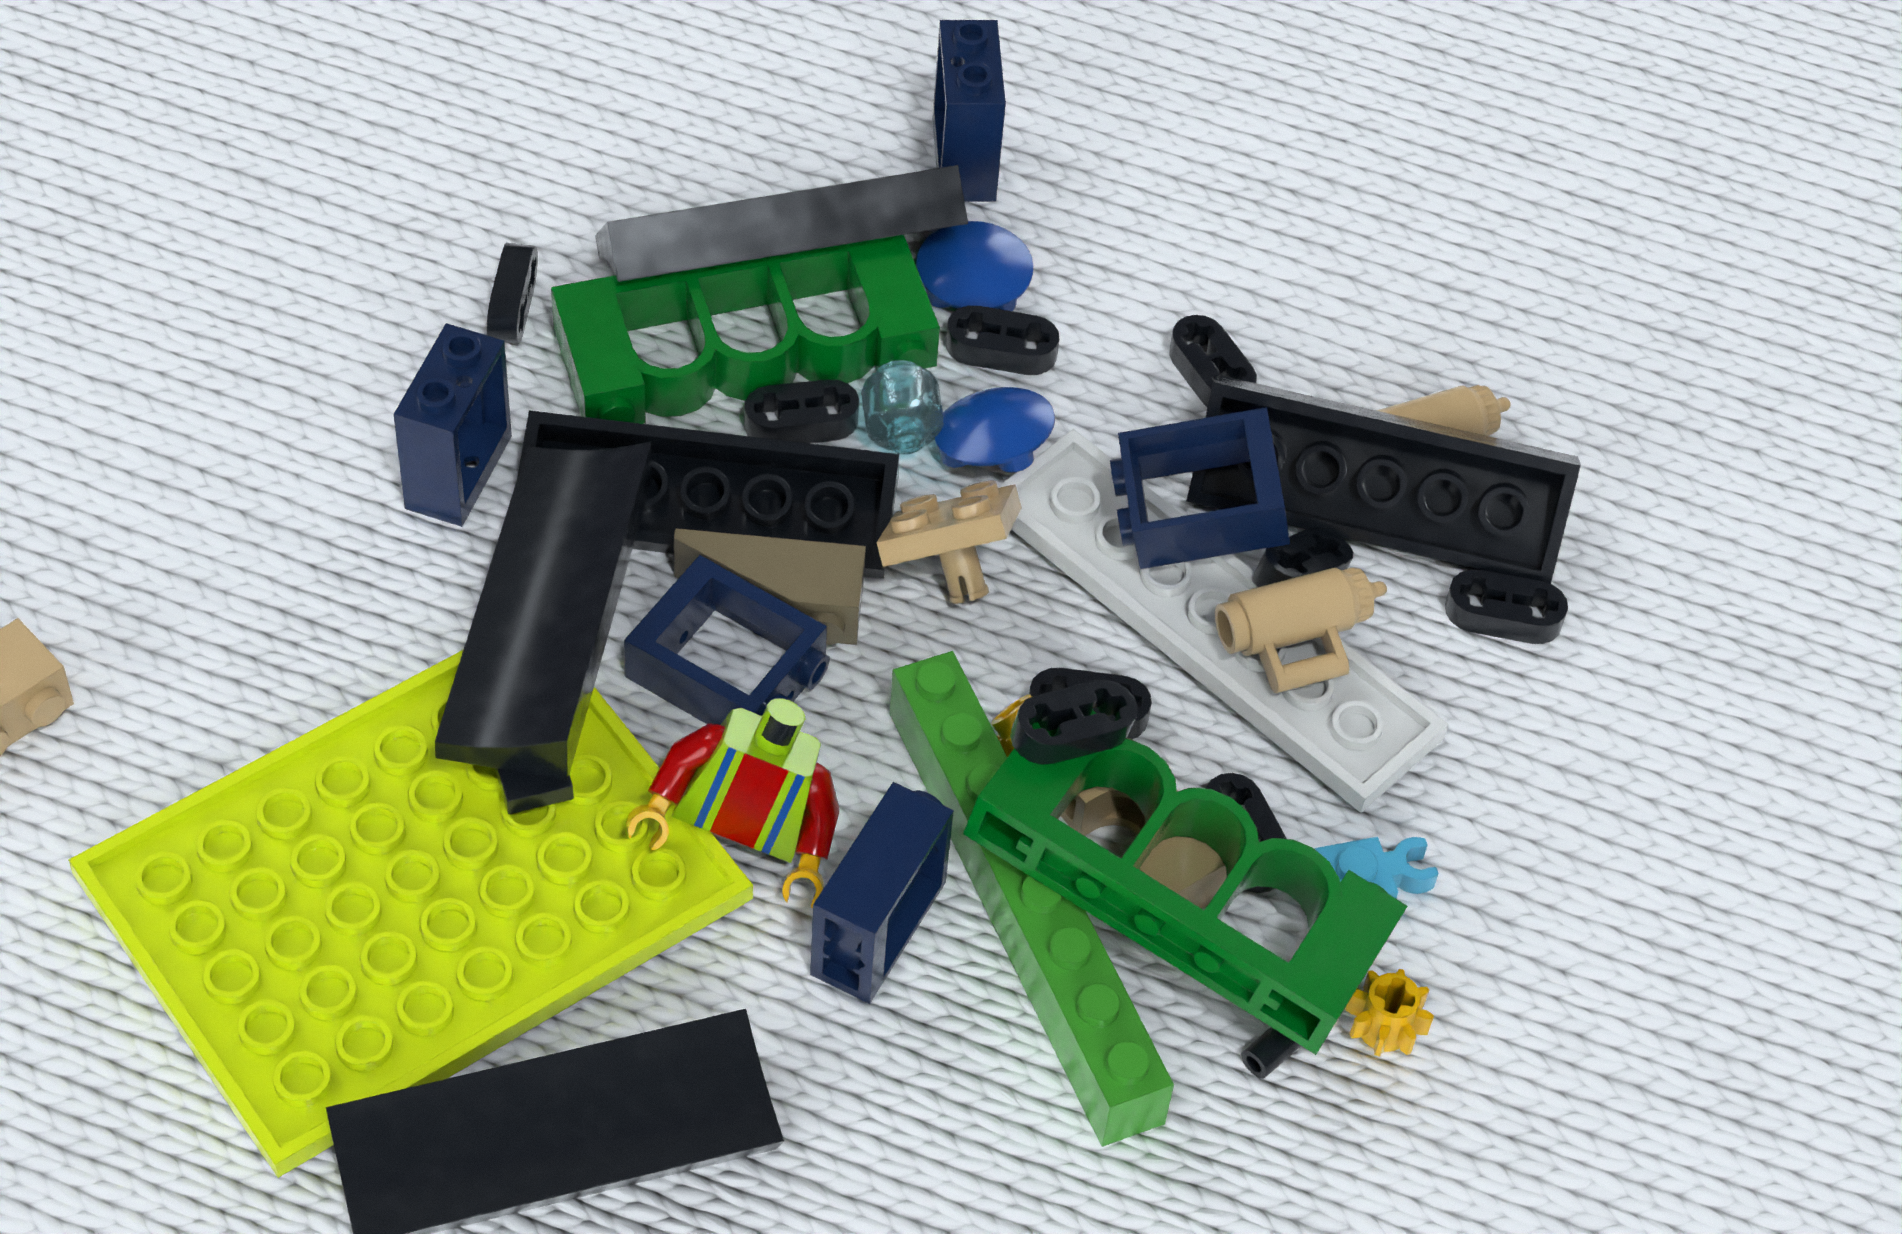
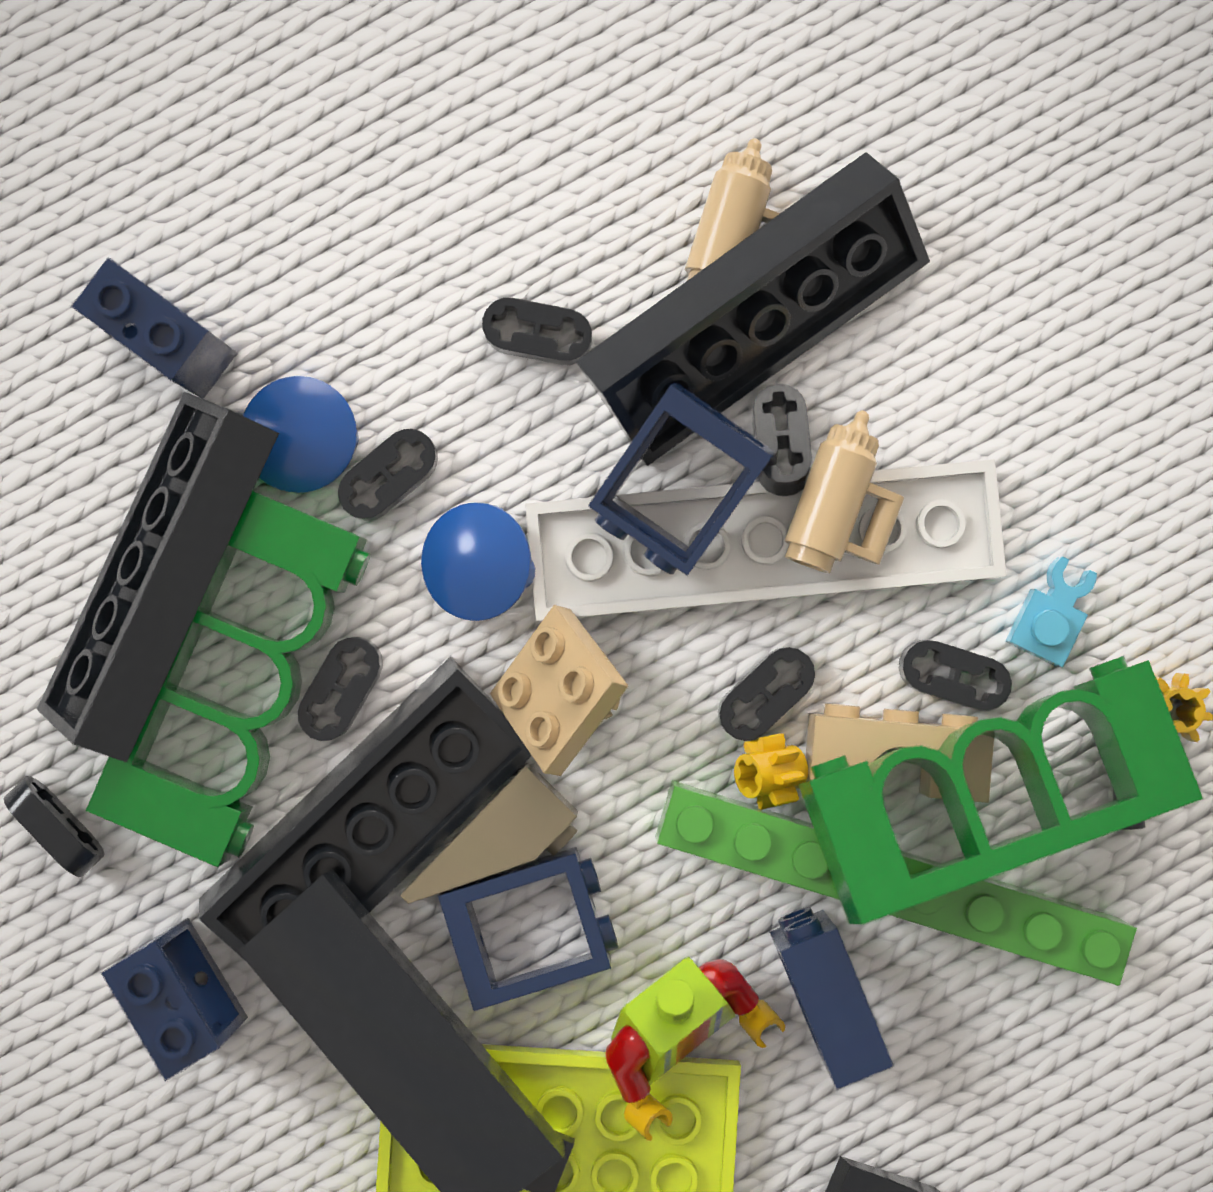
camera: 45 degrees left, 35 degrees up
(902, 405) = (405, 619): clear light blue head -> none
(1077, 729) = (869, 804): black beam -> none
(1506, 606) = (912, 301): black beam -> none

